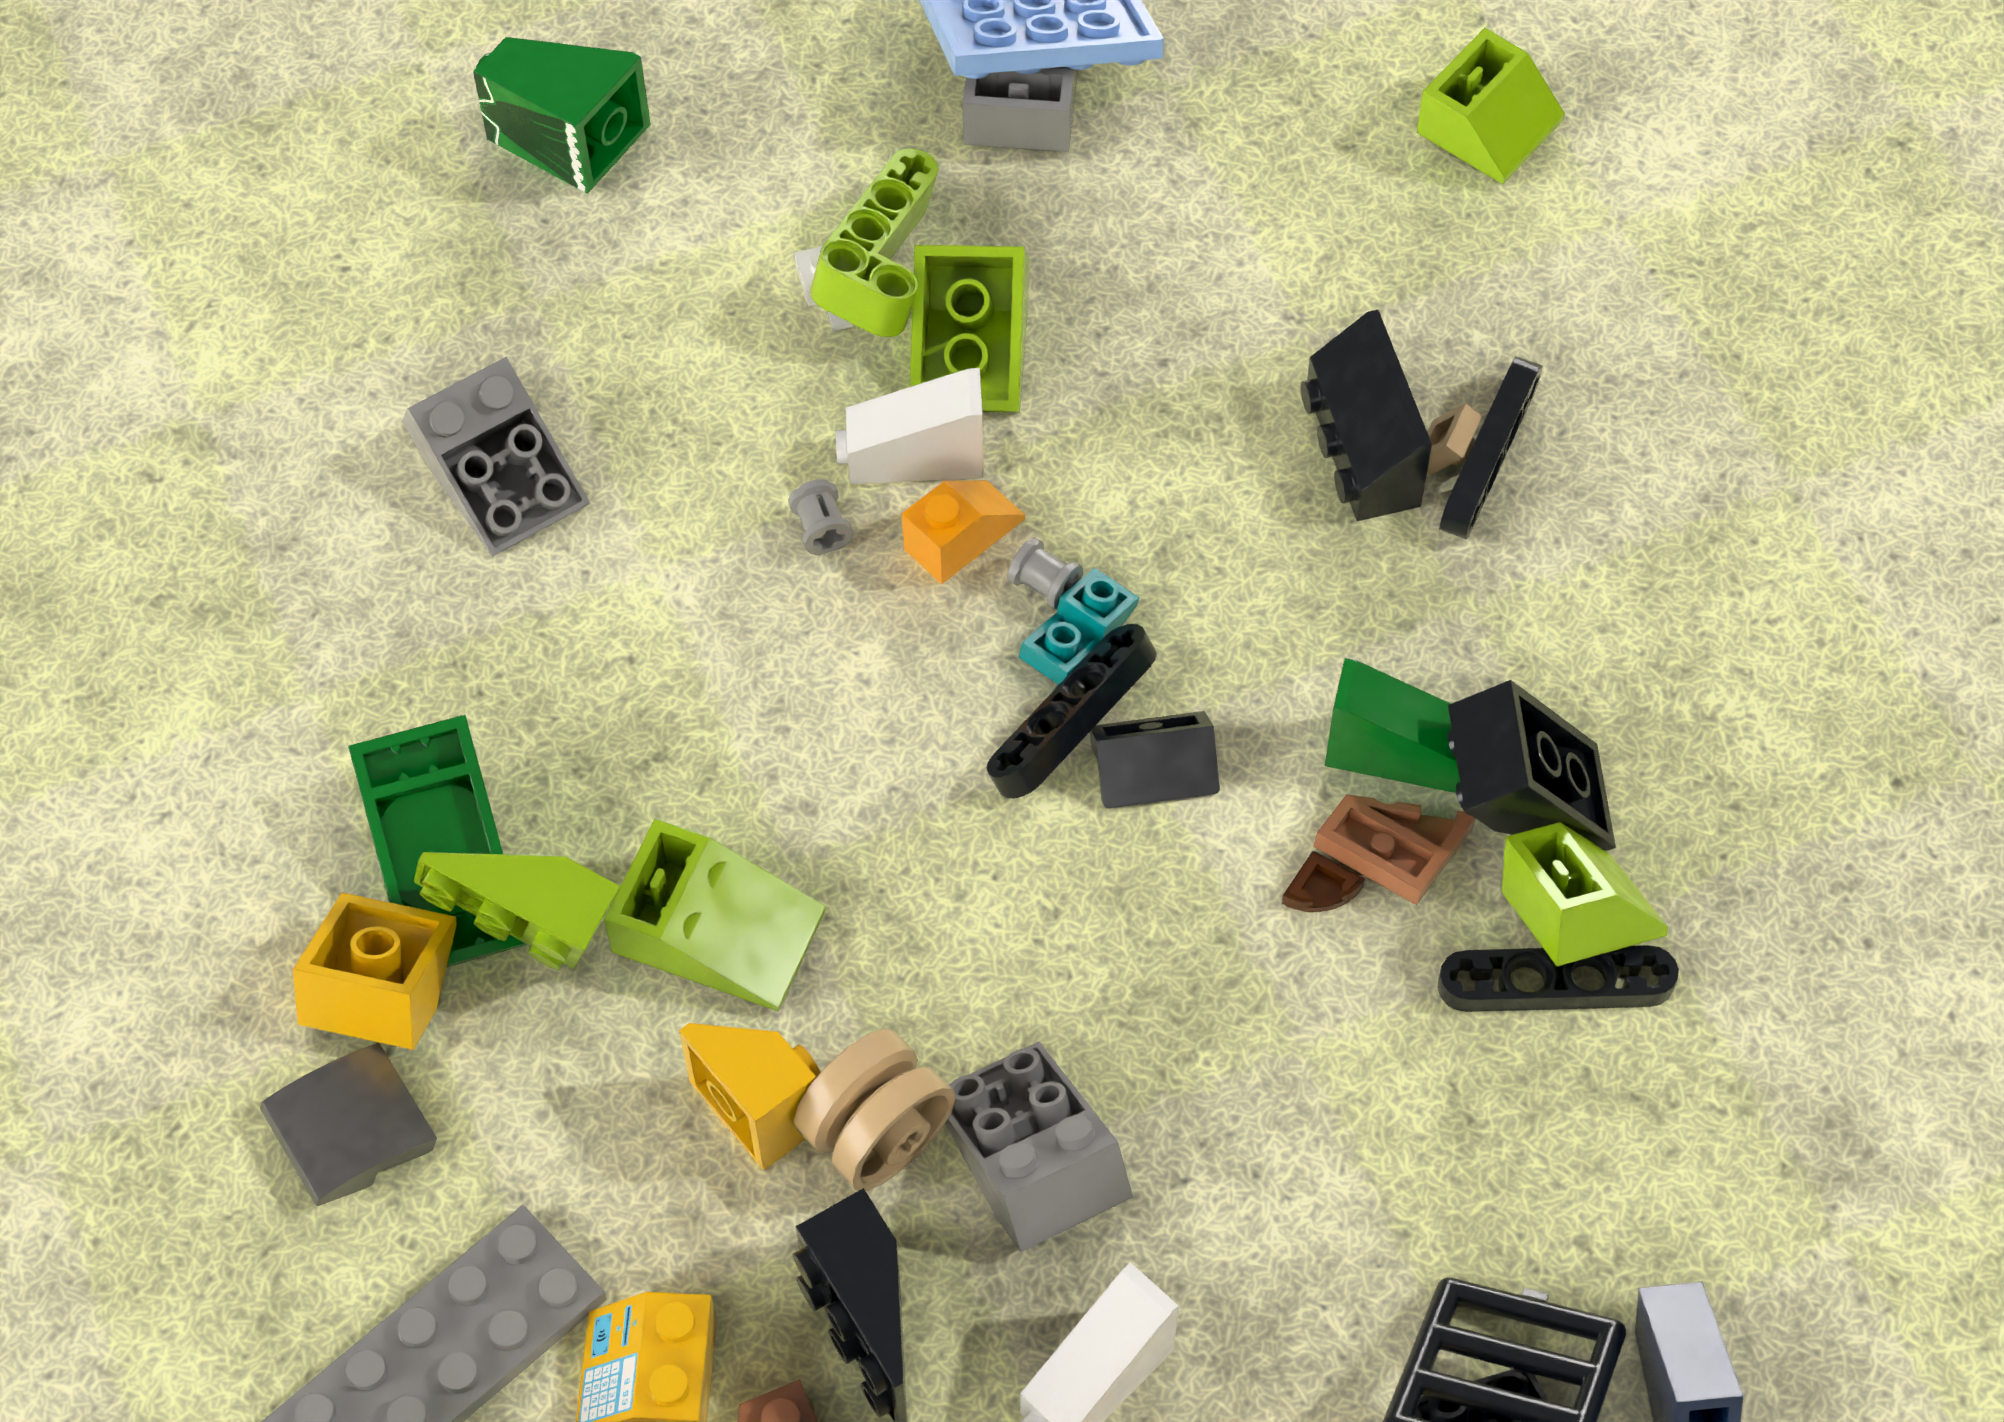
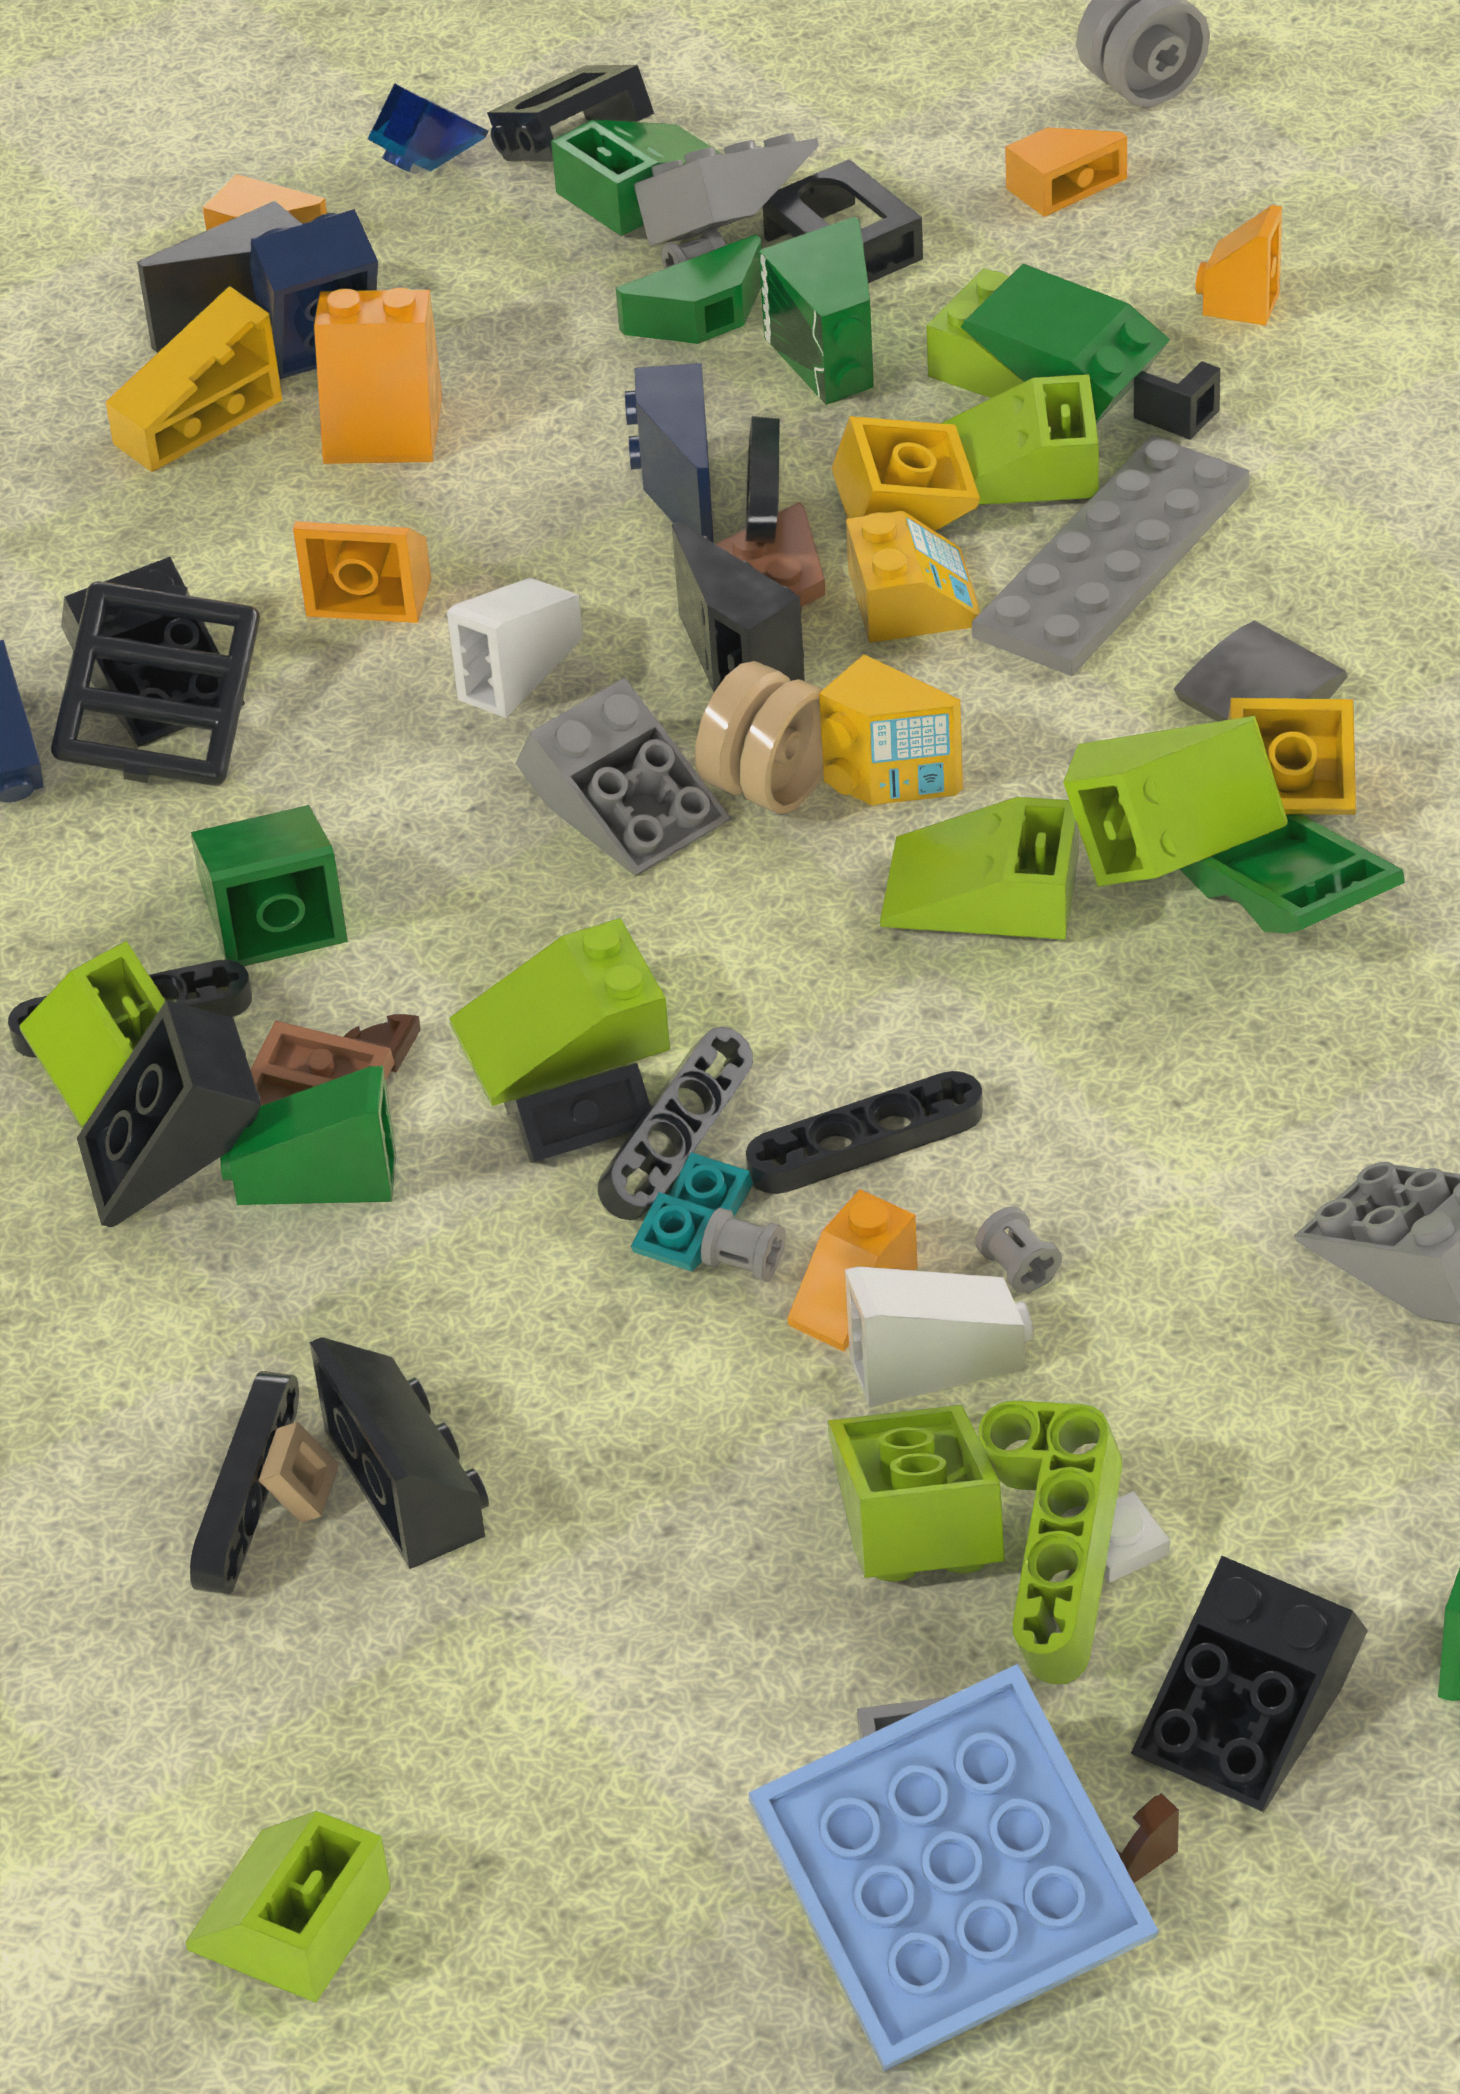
camera: 170 degrees right, 15 degrees down
(774, 136) = (1249, 1684): none -> black slope
(893, 46) = (1155, 1838): none -> reddish brown tile
(907, 667) = (860, 1125): none -> black beam
(1148, 853) = (565, 1015): none -> lime slope
(1411, 1070) = (270, 886): none -> green slope

